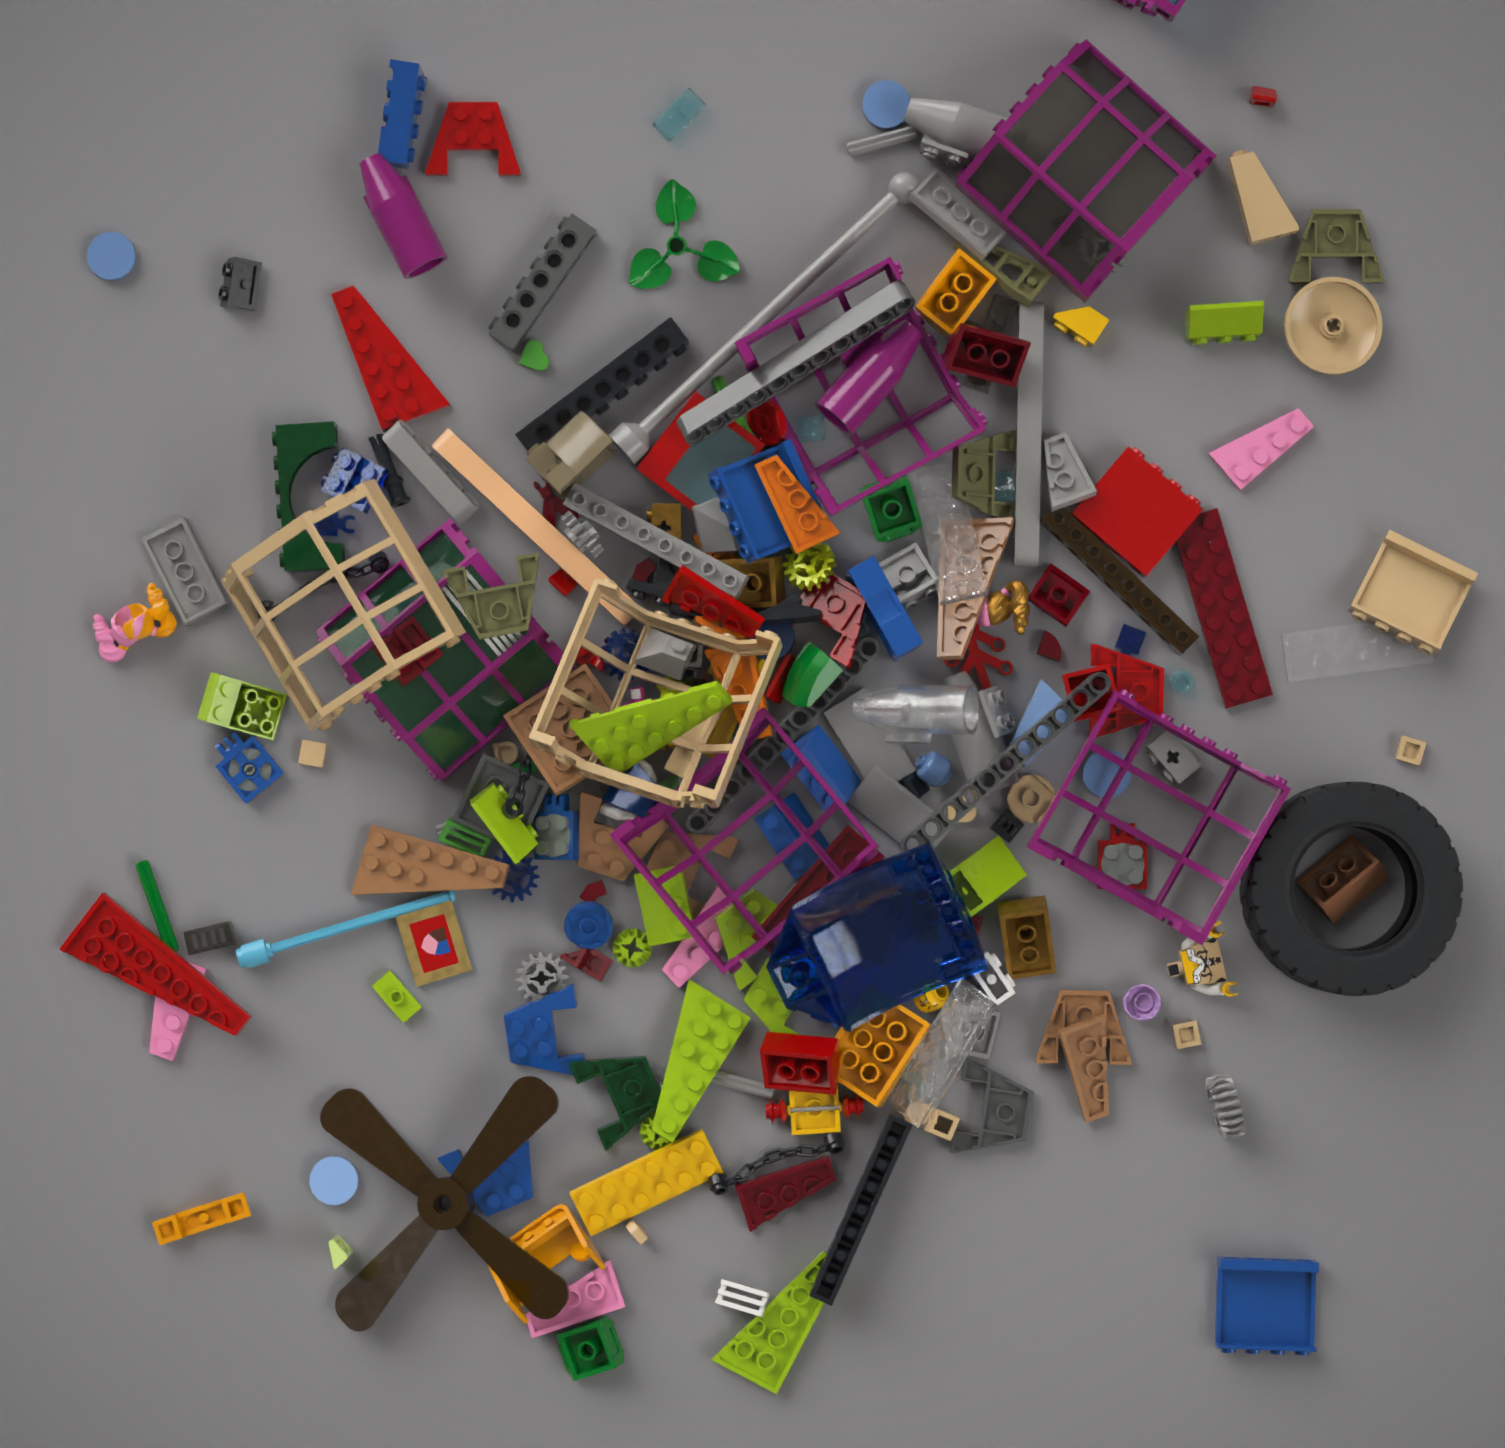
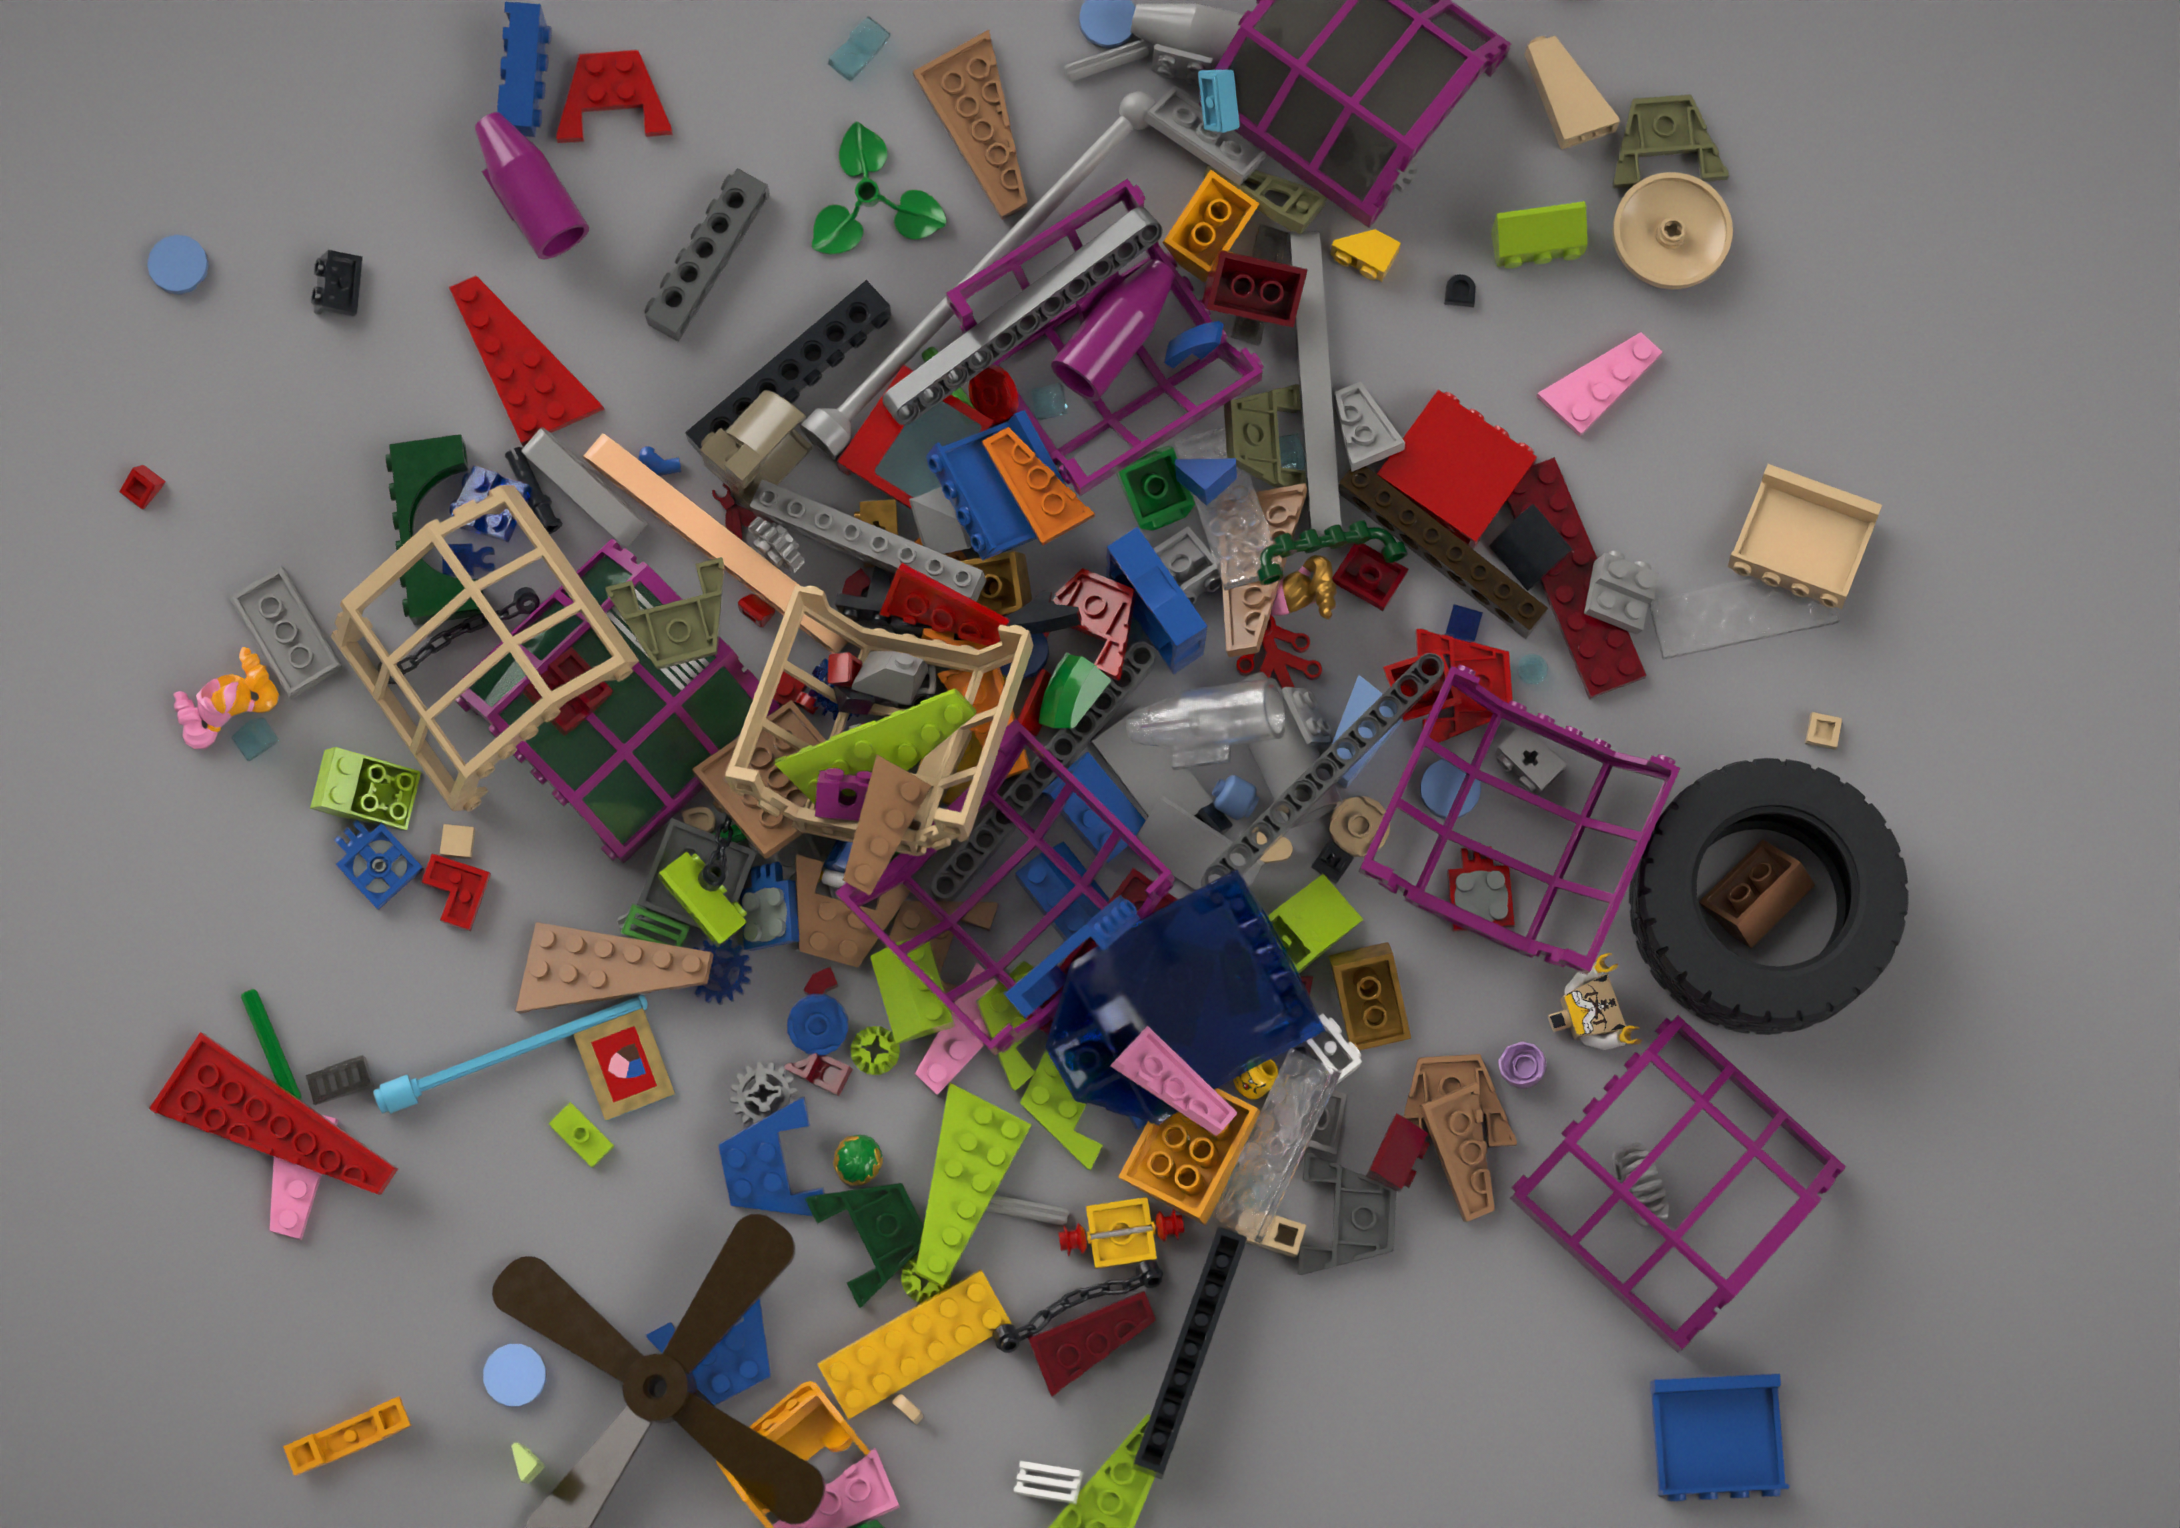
camera: 10 degrees left, 10 degrees down
(74, 440) = (141, 486): none -> red slope
(156, 656) = (255, 738): none -> clear light blue slope
(317, 793) = (465, 889): none -> red plate
(489, 456) = (657, 464): none -> blue arm
(534, 356) = (703, 343): bright green tile -> none
(612, 1034) = (857, 1160): none -> green hair
(616, 763) = (831, 800): none -> magenta brick
(629, 645) = (843, 669): none -> red slope
(633, 672) = (853, 701): none -> black slope
(653, 781) = (884, 819): none -> medium nougat wing
(767, 171) = (972, 107): none -> medium nougat wing
(800, 1063) = (1098, 1172): red slope -> none
(810, 566) = (1060, 562): neon yellow gear -> none
(815, 885) = (1048, 977): none -> blue panel
(861, 996) = (1172, 1080): none -> bright pink wing
(933, 508) = (1206, 476): none -> blue slope
(934, 391) = (1195, 341): none -> blue slope
(971, 189) = (1218, 100): none -> medium azure slope
(1032, 565) = (1333, 538): none -> dark green bar
(1036, 1068) = (1398, 1153): none -> dark red slope
(1049, 647) = (1365, 640): dark red tile -> none
(1154, 361) = (1460, 291): none -> black tile
(1186, 1034) = (1577, 1100): tan tile -> none
(1190, 583) = (1530, 547): none -> black slope
(1196, 1050) = (1728, 1287): none -> magenta window
(1259, 625) = (1620, 591): none -> light grey plate

